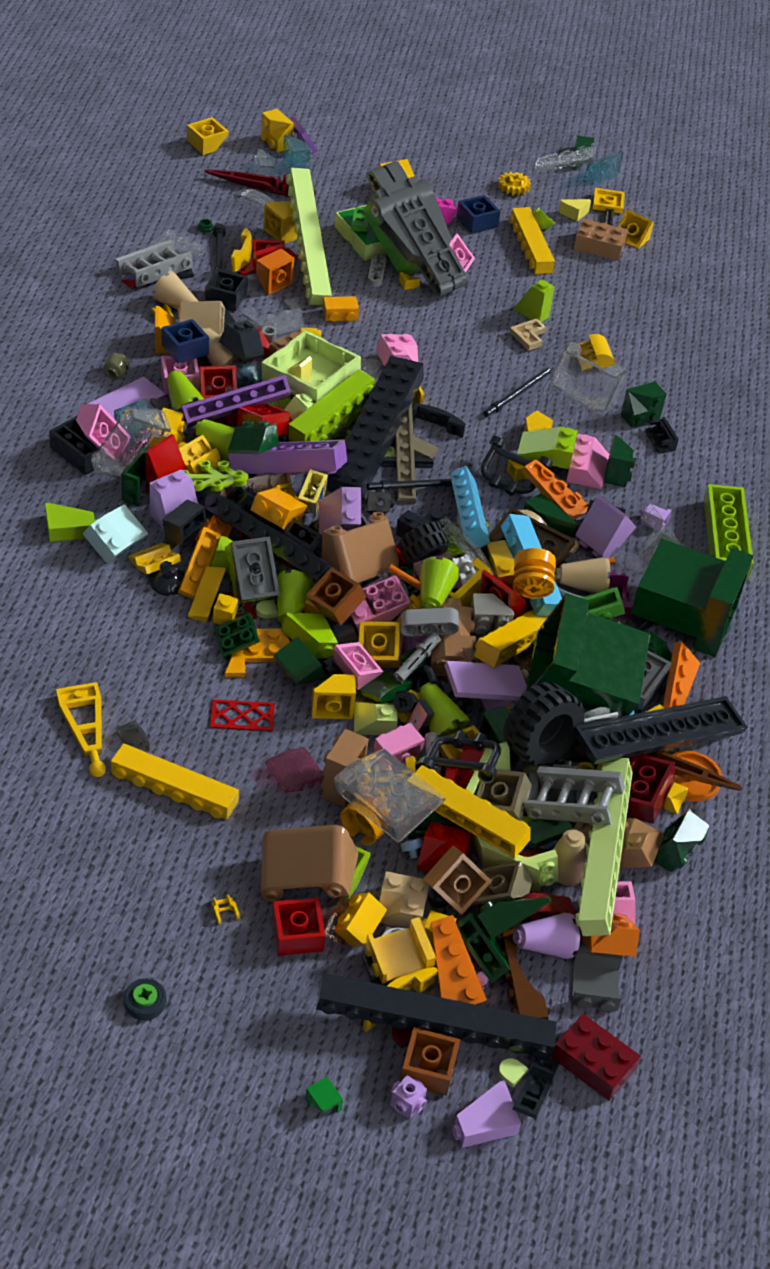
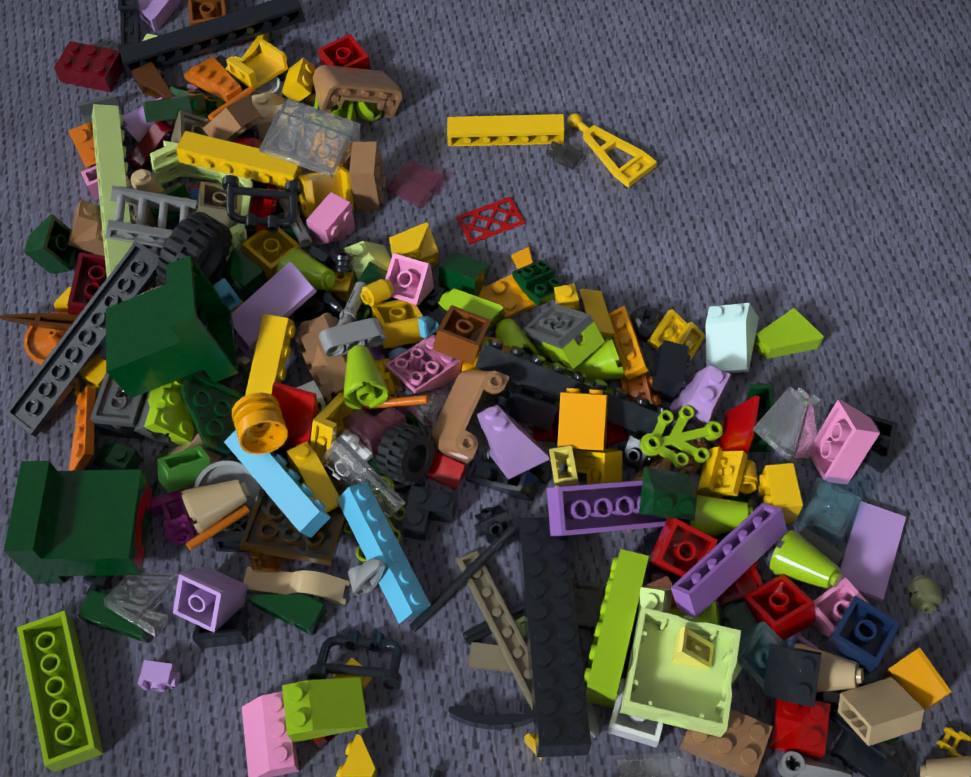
camera: 165 degrees right, 15 degrees up
(232, 906) = (405, 66): yellow piece -> none
(355, 624) = (427, 326): none -> medium azure tile
(389, 657) = (377, 292): none -> yellow brick
(451, 909) = (247, 92): none -> orange bar
(489, 503) = (366, 576): none -> light grey piece
(555, 490) = (288, 643): orange wing -> none
(619, 463) = (225, 737): dark green slope -> none

